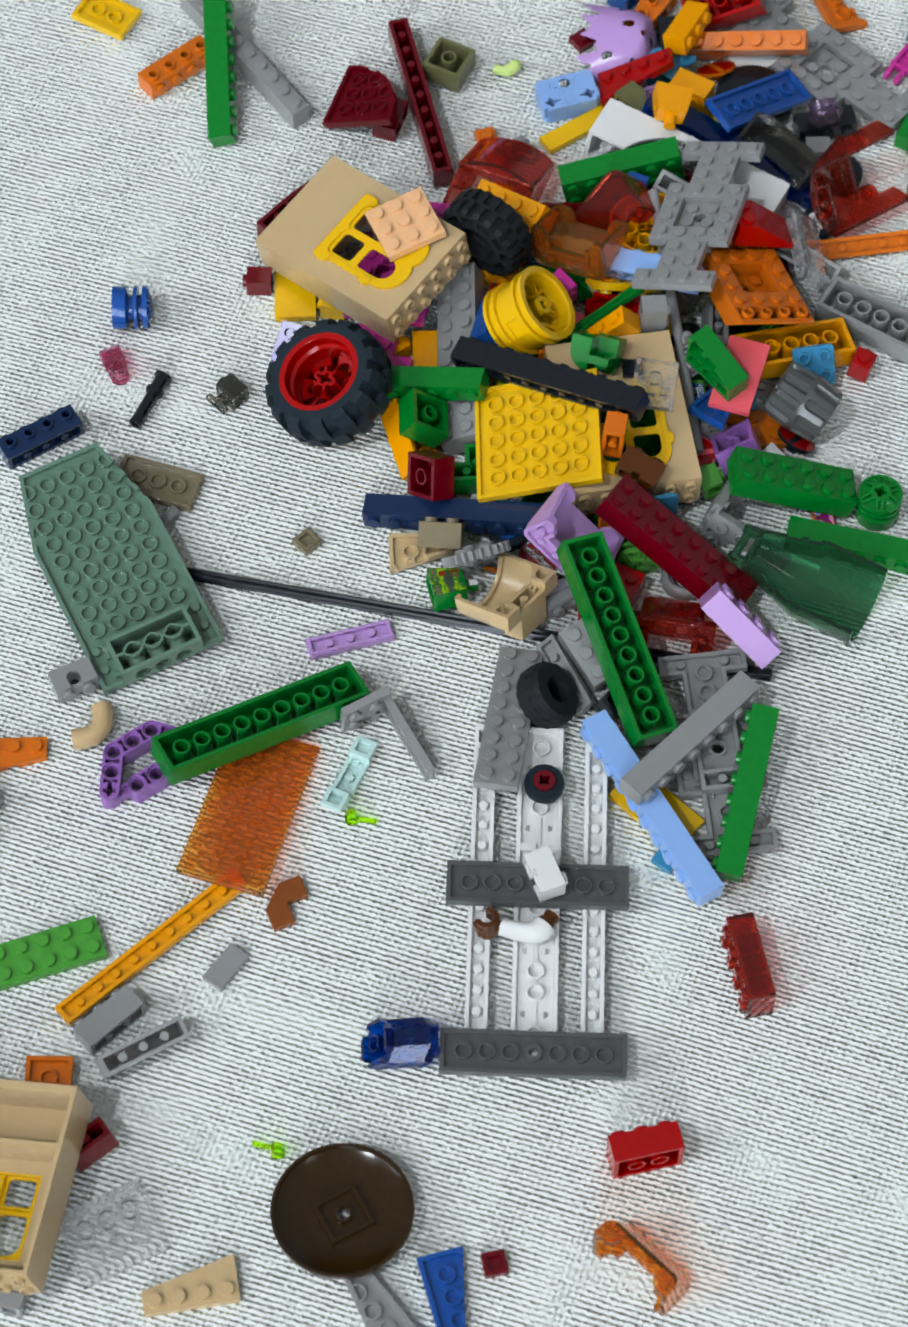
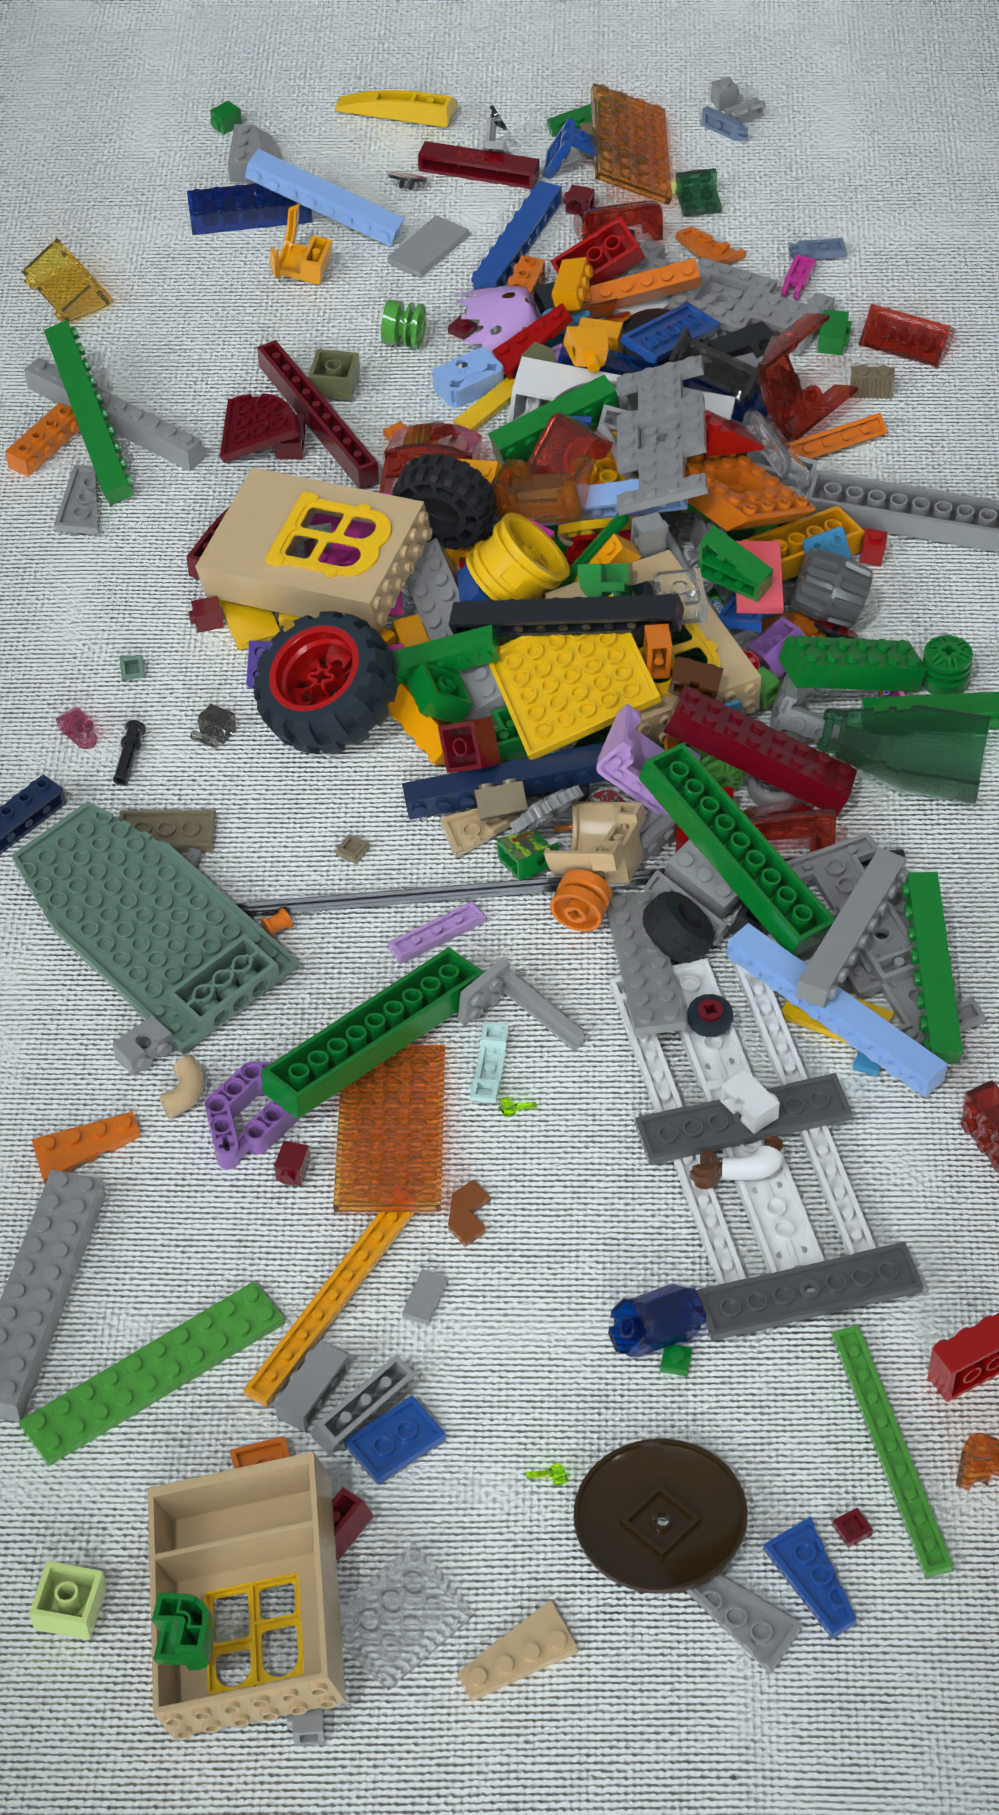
camera: 15 degrees left, 10 degrees down
(131, 307) = (77, 667): blue wheel -> none
(157, 821) = (292, 1163): none -> dark red brick
(159, 1084) = (394, 1440): none -> blue plate
(180, 316) = (132, 667): none -> sand green slope
(187, 140) = (79, 504): none -> light grey wing
(219, 595) = (276, 922): none -> orange bush
(405, 224) = (357, 508): light nougat plate -> none
(407, 1080) = (676, 1360): none -> green plate
(476, 646) = (581, 900): none -> orange wheel
(507, 70) = (396, 368): yellowish green arm -> none
(527, 27) = (404, 324): none -> bright green wheel
(549, 1209) = (892, 1452): none -> bright green plate
(740, 624) = (858, 806): lavender brick -> none
(824, 112) = (741, 329): clear purple piece -> none

